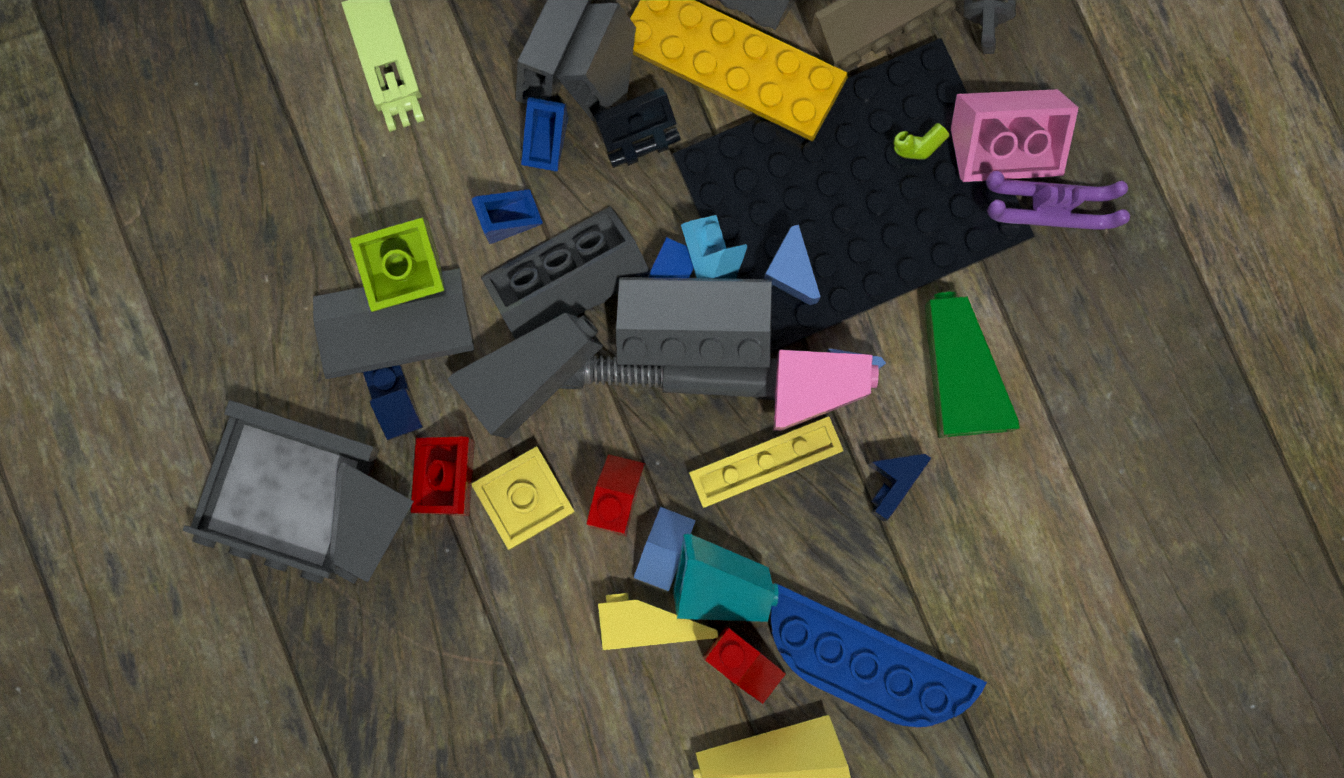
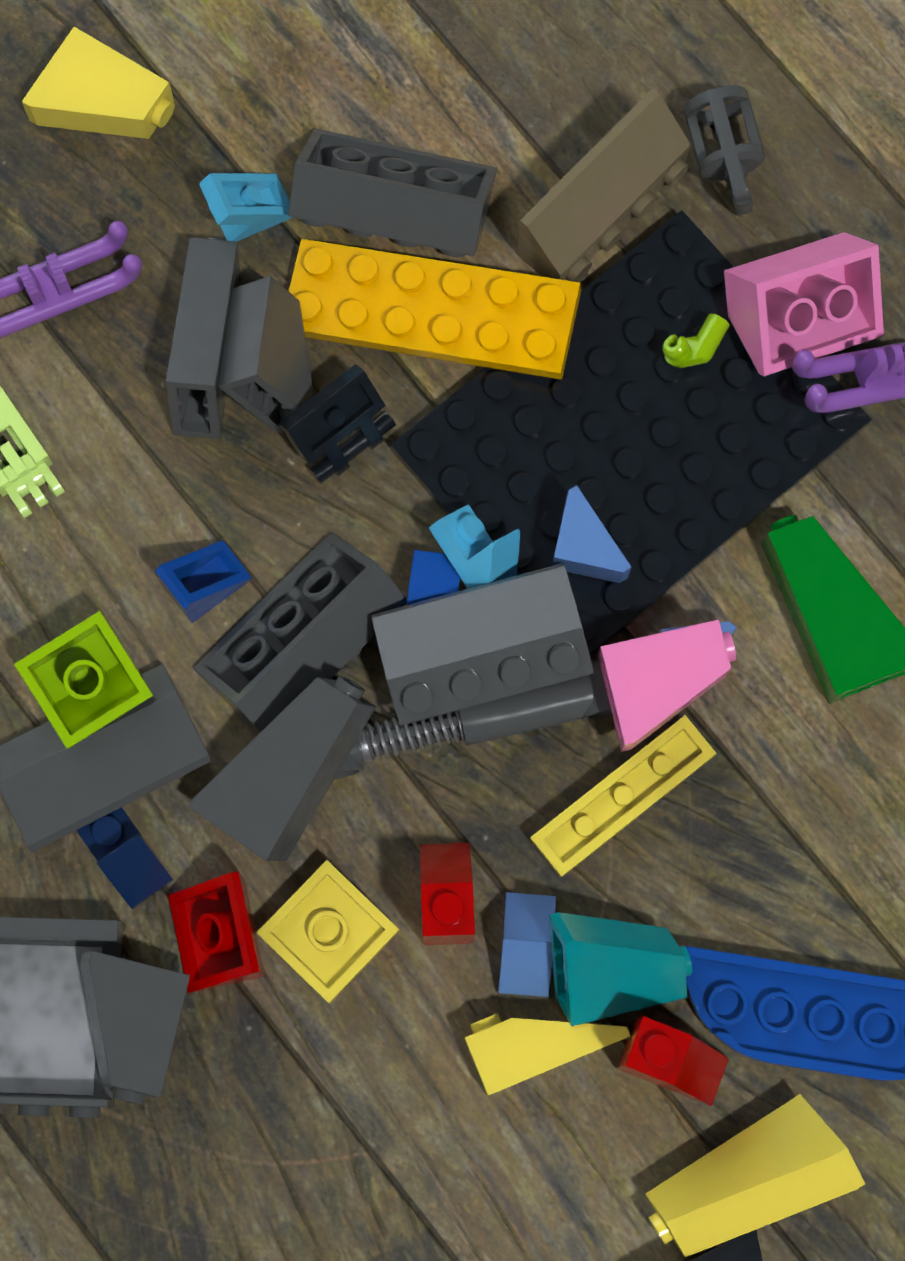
camera: 15 degrees left, 5 degrees down
(544, 134) = (222, 465): blue slope -> none
(902, 474) = (799, 762): dark blue slope -> none

